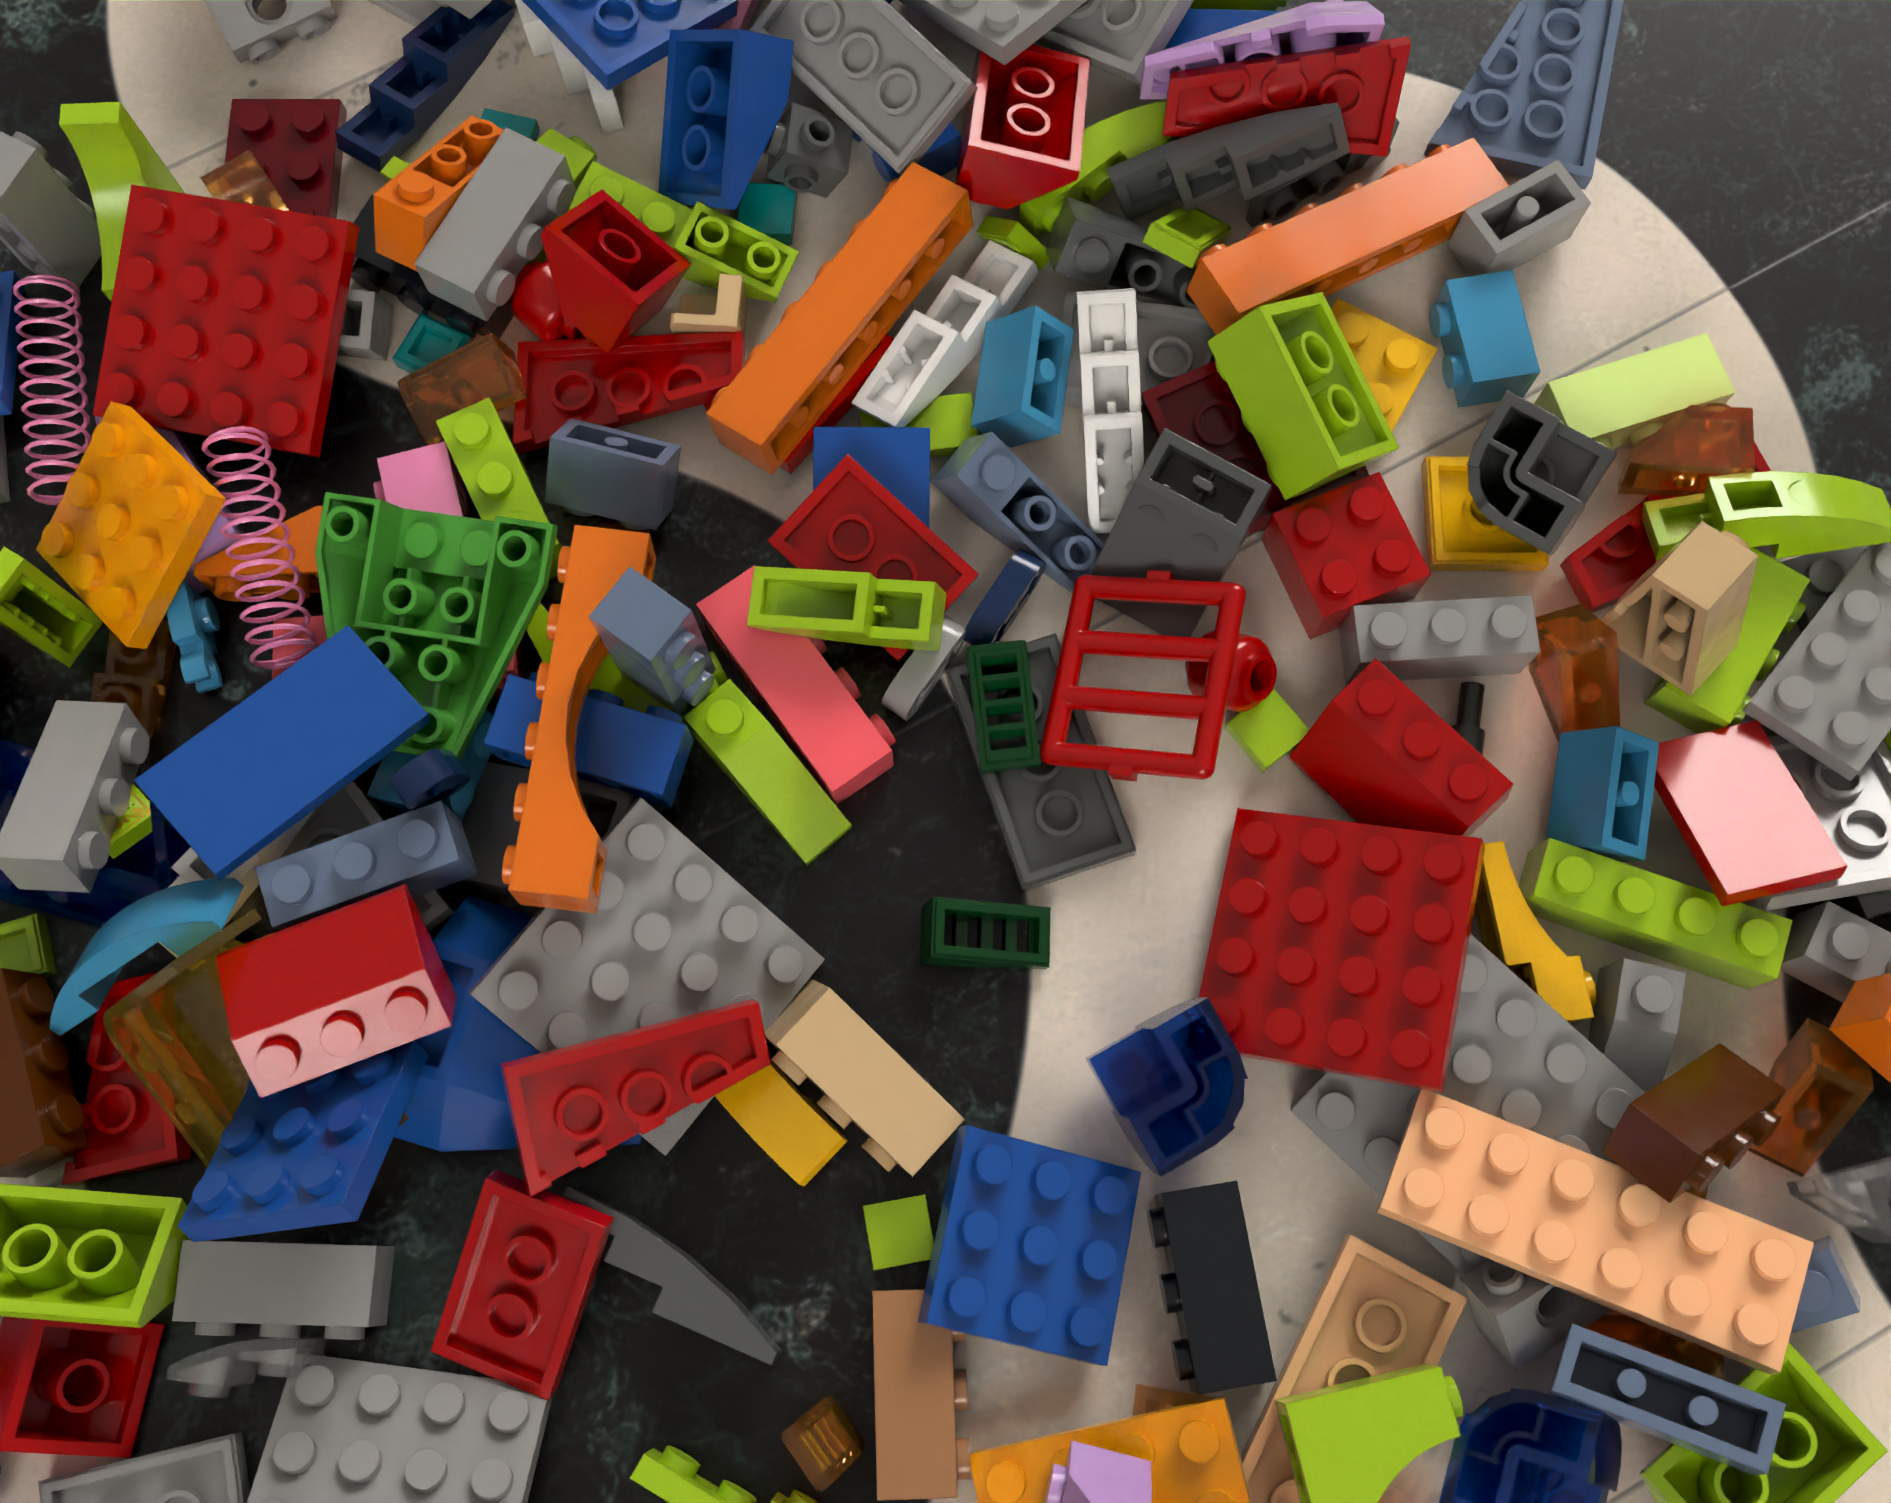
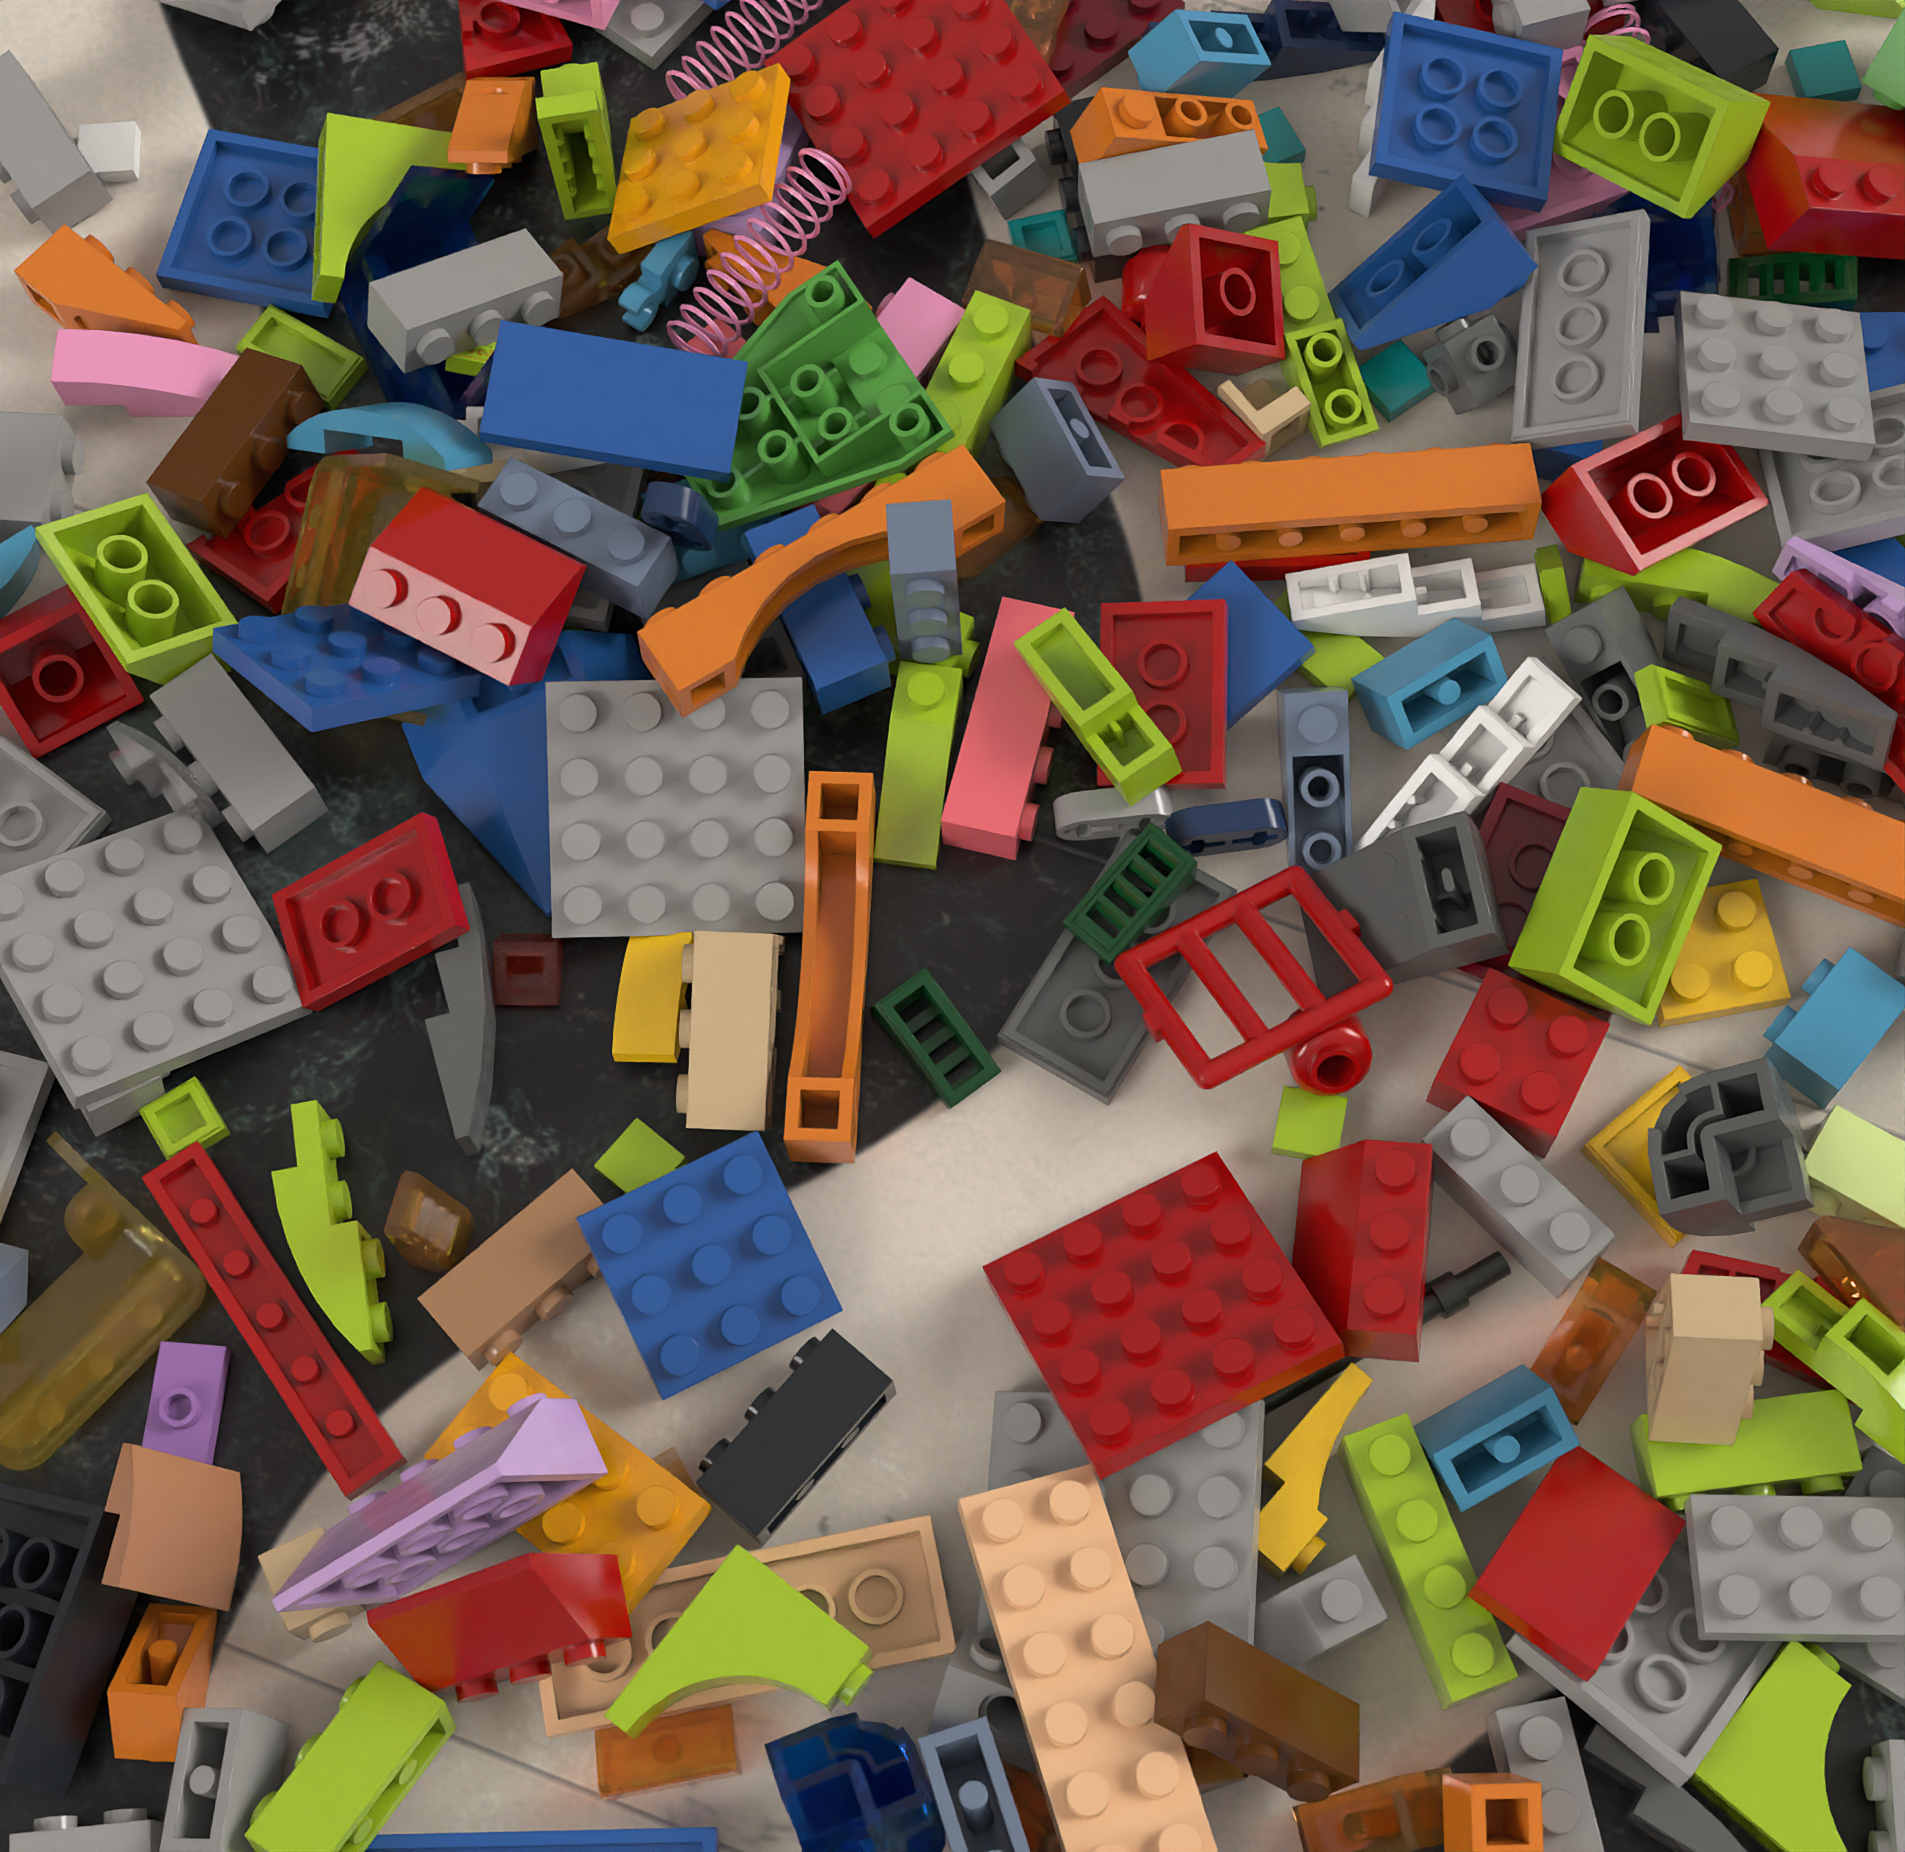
camera: 55 degrees right, 5 degrees down
(405, 116) = (1199, 55): none -> dark azure brick
(603, 1091) = (556, 841): red wing -> none
(667, 1193) = (527, 969): none -> clear red slope
(873, 965) = (833, 973): none -> orange arch
(1173, 1083) = (929, 1268): clear blue brick -> none

